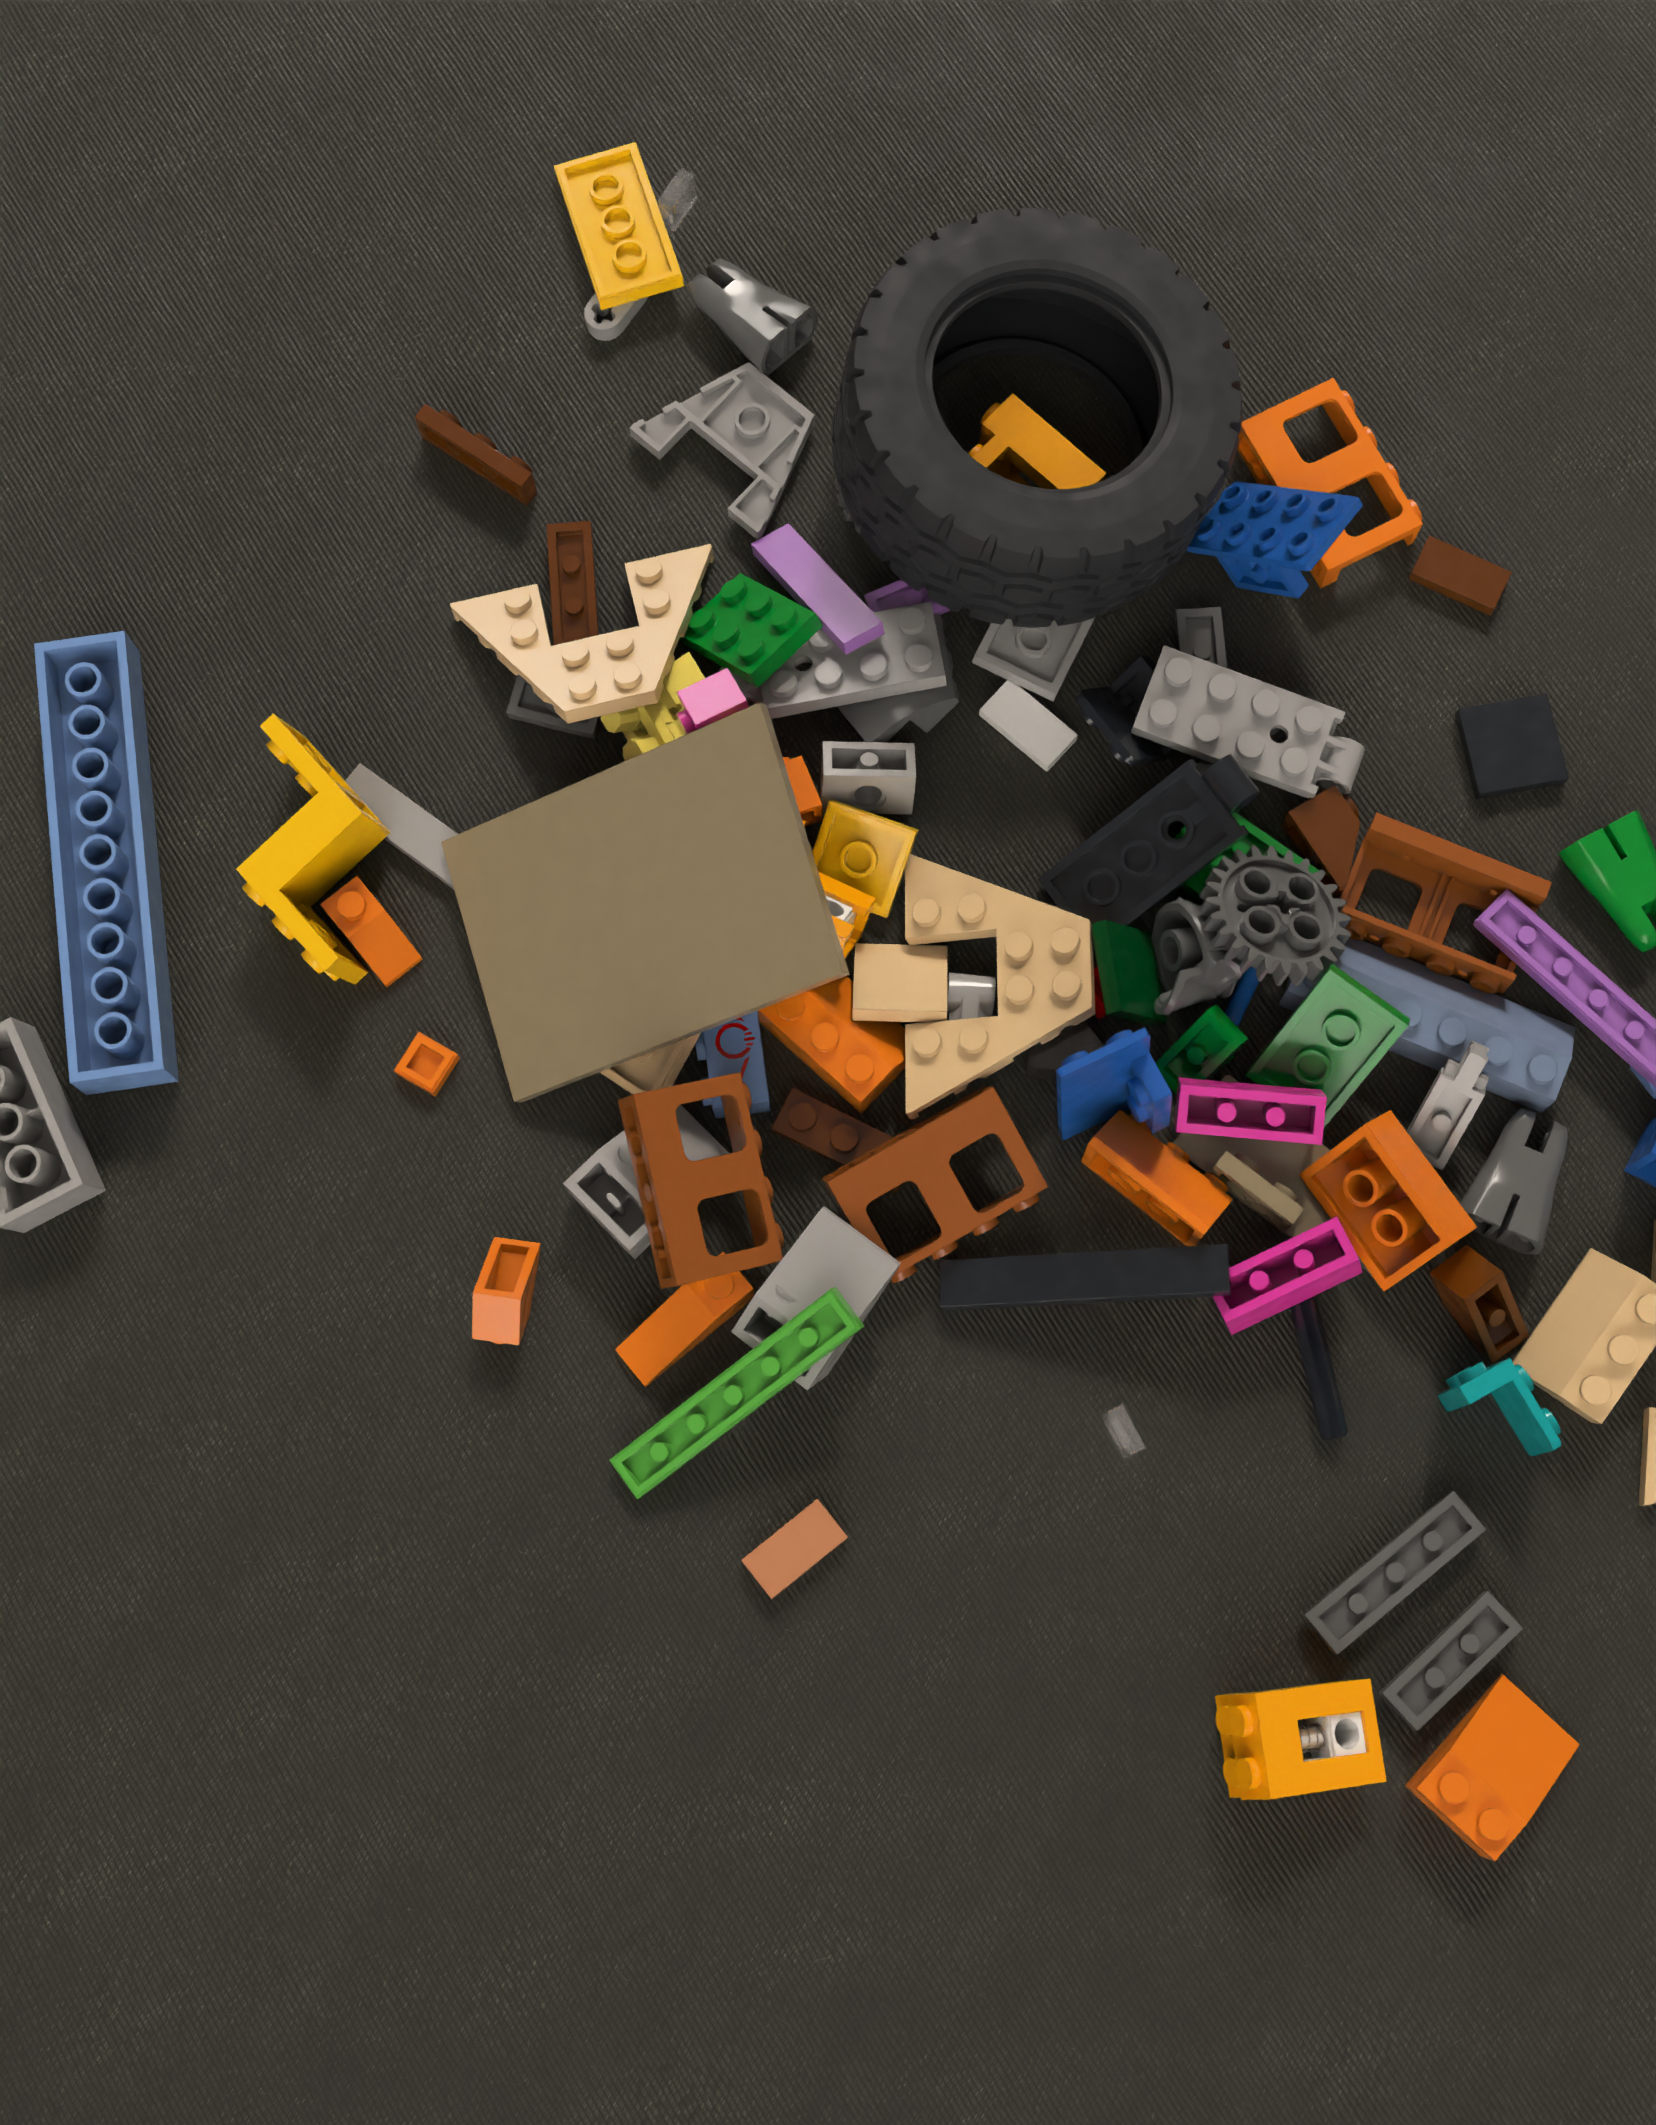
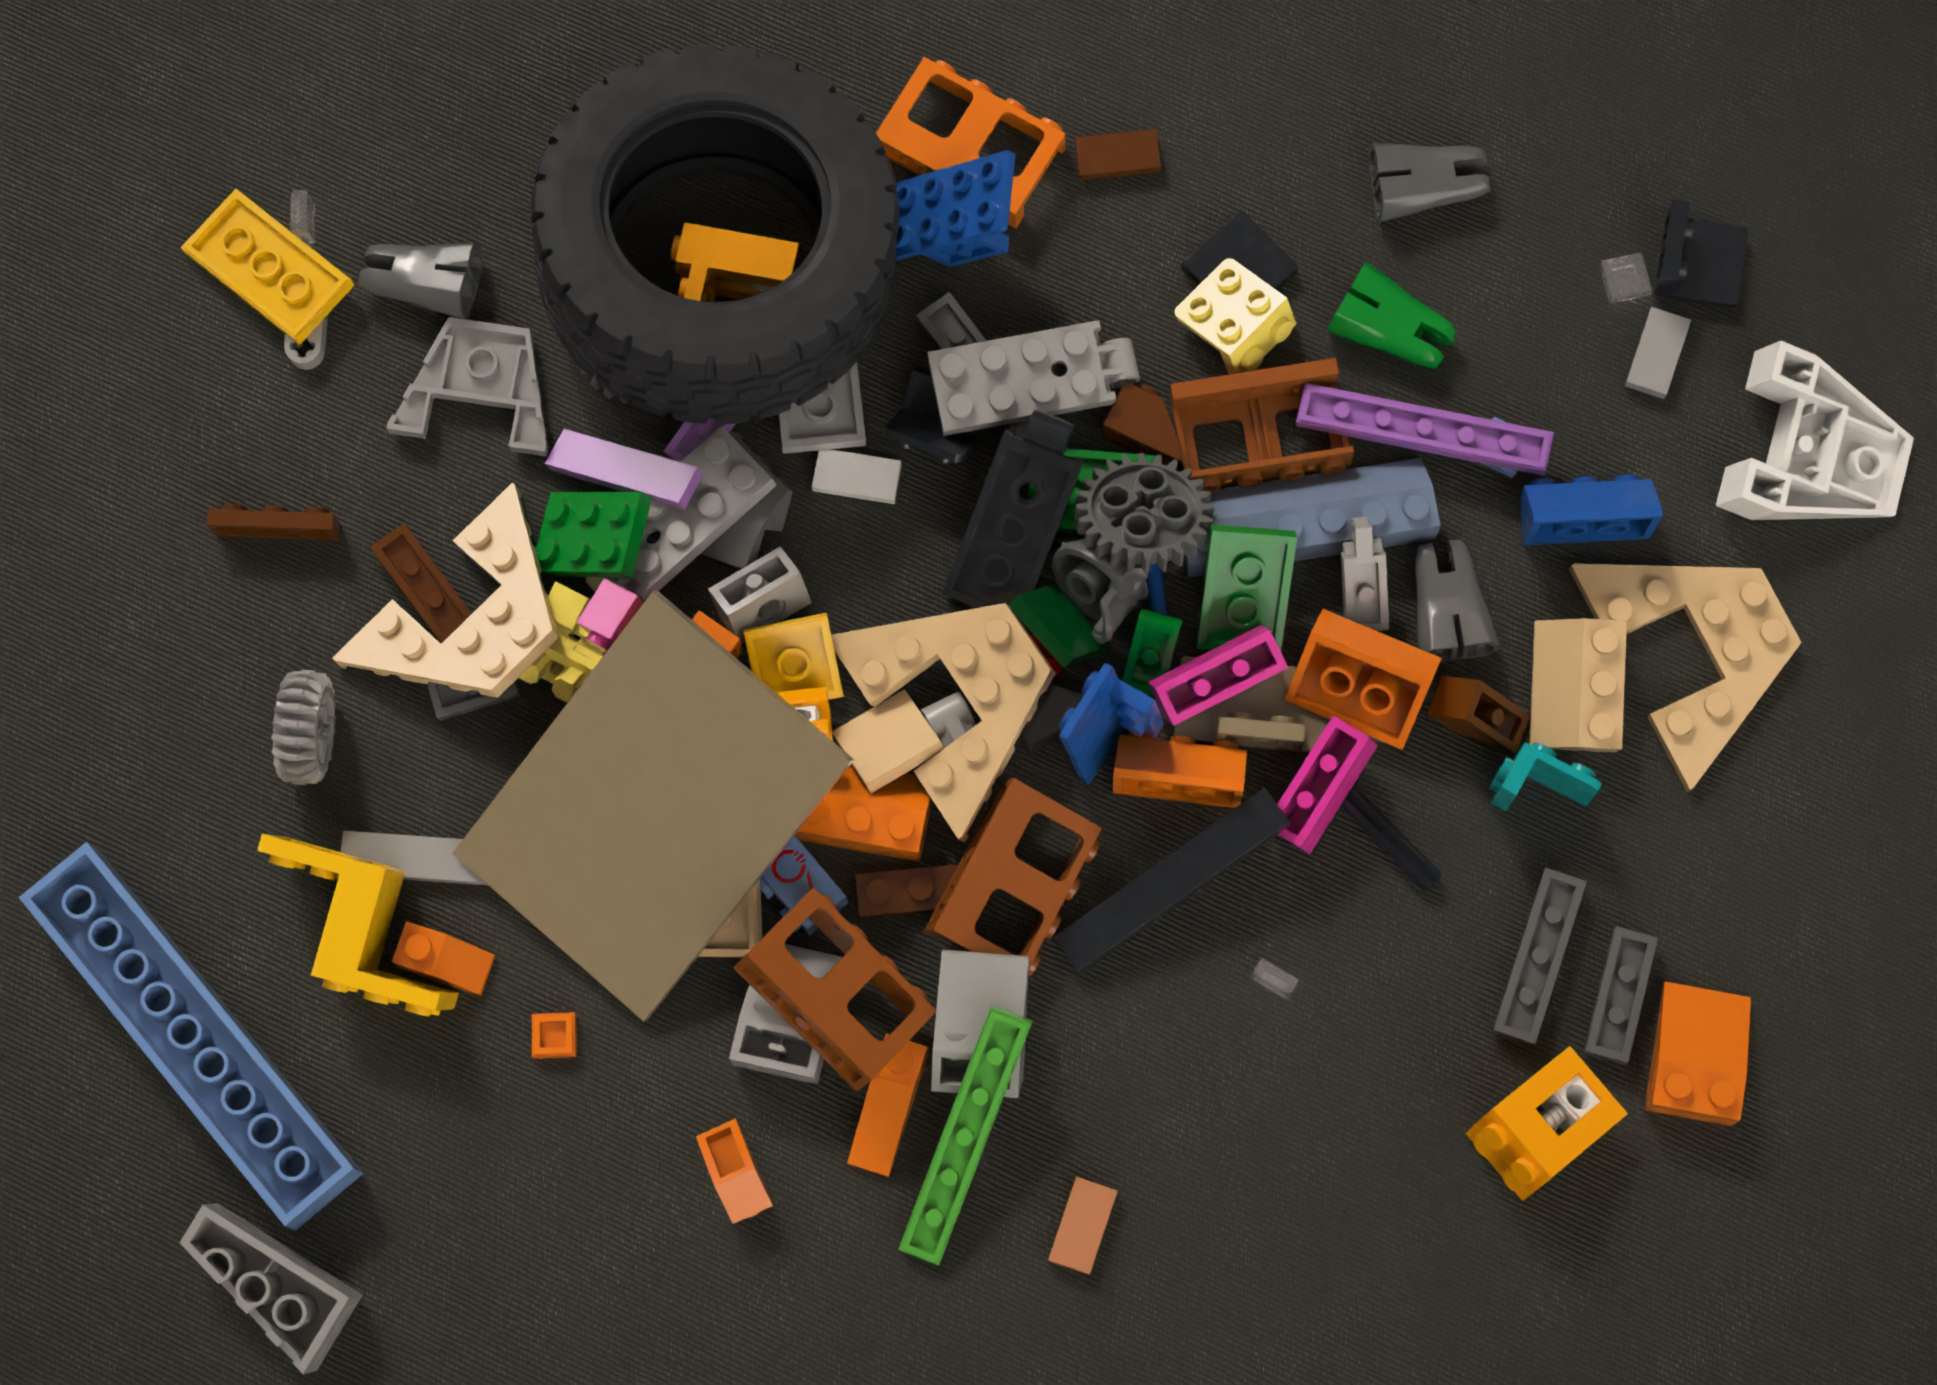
camera: 30 degrees left, 0 degrees up
(381, 646) = (303, 727): none -> light grey gear
(1481, 788) = (1237, 315): none -> light yellow bracket

